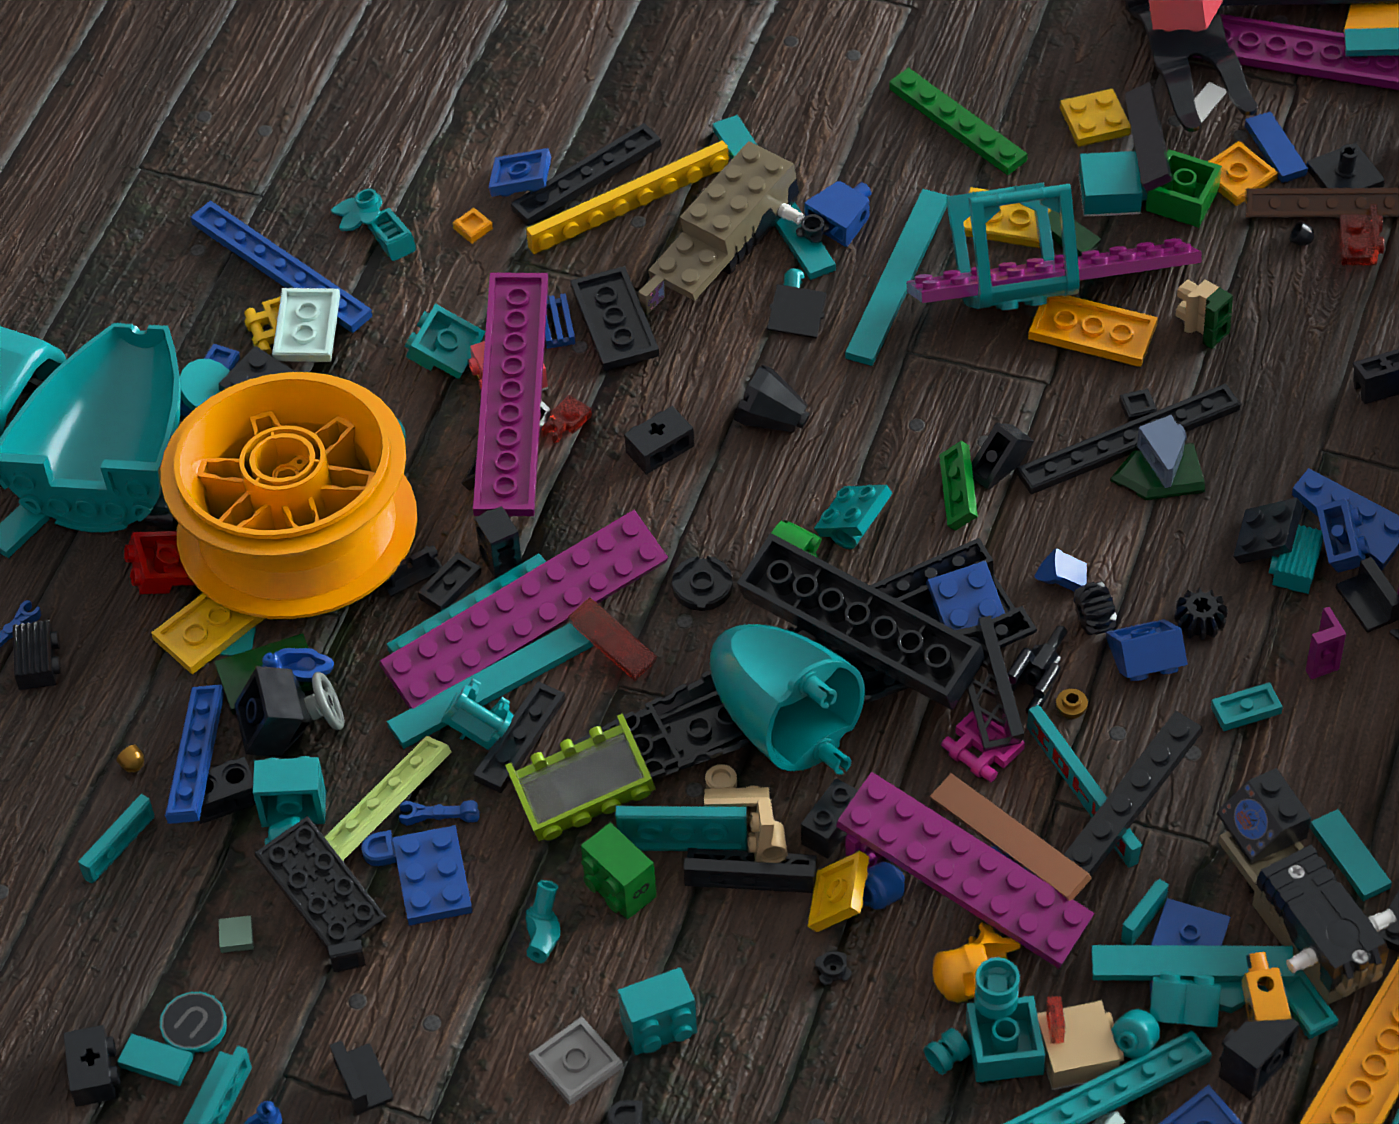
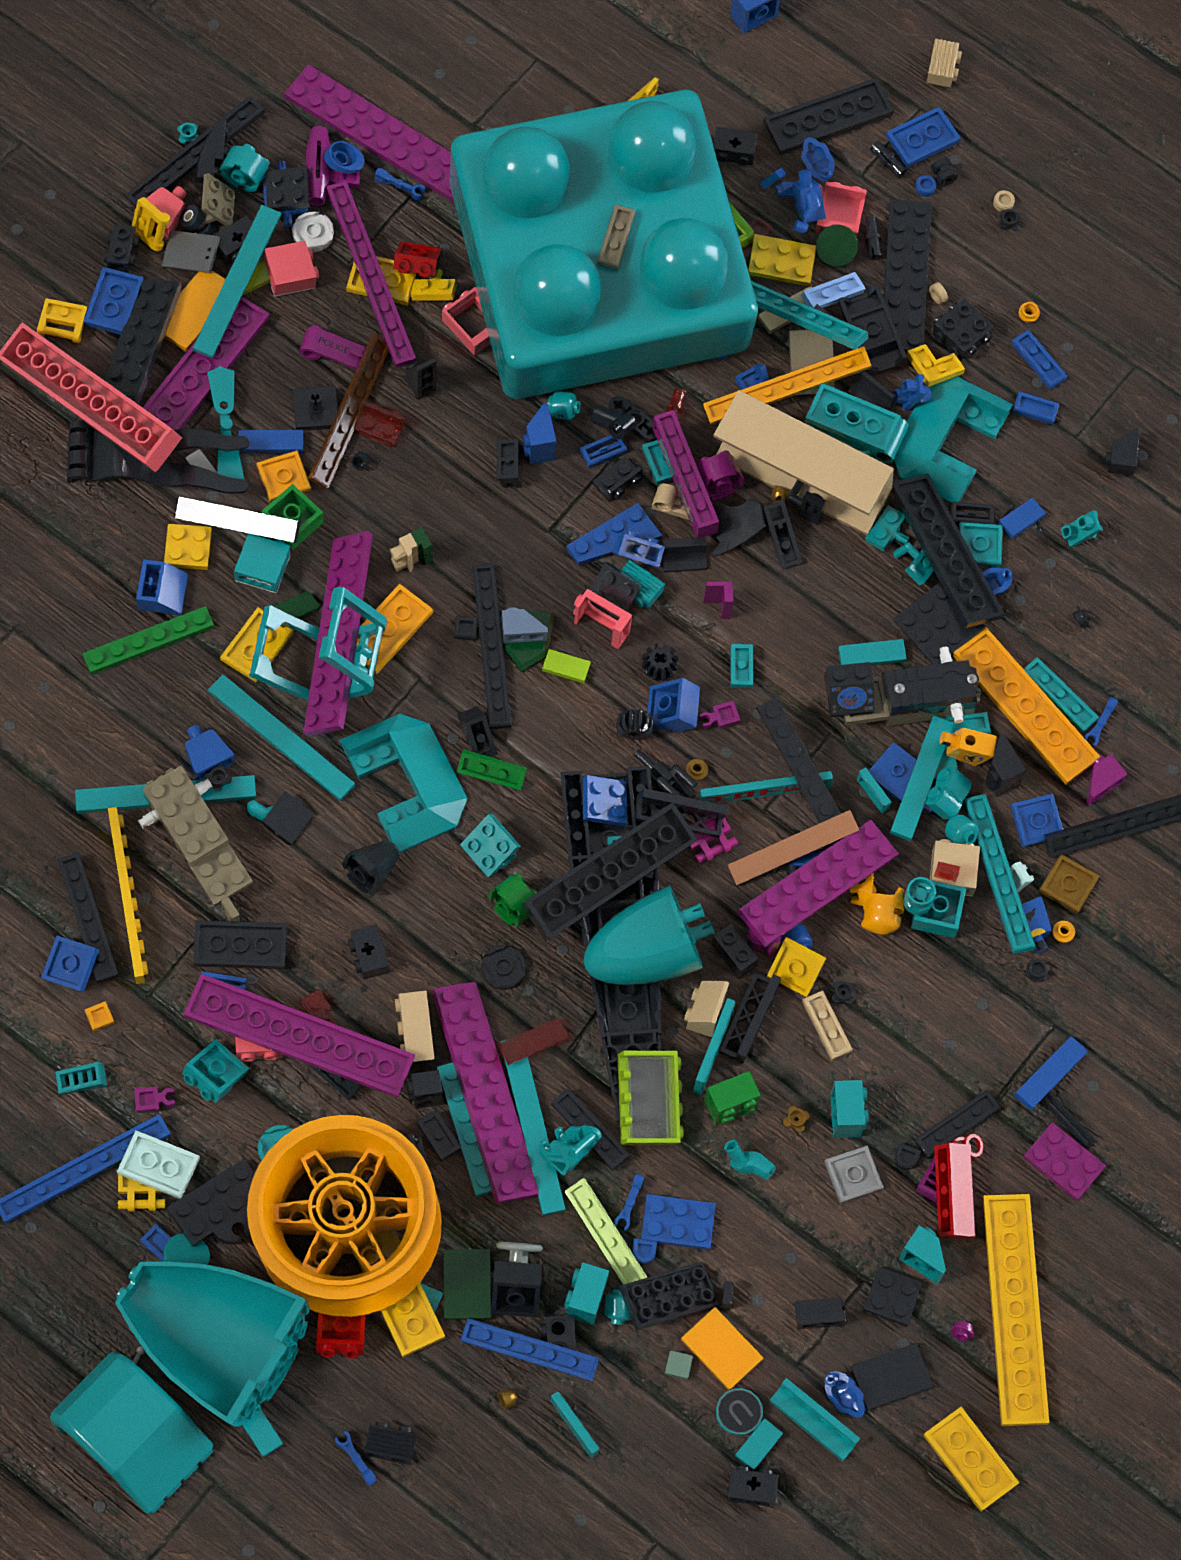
camera: 80 degrees left, 15 degrees up
(274, 977) = (722, 1348): none -> light orange tile
(302, 661) = (479, 1259): blue arm -> none
(358, 210) = (52, 1097): teal plate -> none
(389, 298) = (149, 1099): none -> magenta plate
(580, 508) = (415, 1024): none -> tan wedge
(624, 958) = (794, 1112): none -> pearl gold plate
(721, 776) = (672, 1011): tan tile -> none
(768, 836) = (742, 995): tan plate -> none
(778, 964) = (827, 1025): none -> tan tile
(903, 441) = (436, 787): none -> teal slope
(946, 1051) = (930, 946): teal wheel -> none
(1025, 102) = (161, 588): none -> blue slope
(1063, 570) = (591, 733): tile -> none
(1143, 522) = (566, 666): none -> lime tile
(1160, 705) = (723, 714): none -> magenta plate
(1219, 542) = (620, 628): none -> coral panel
(1308, 78) = (222, 391): none -> teal piece

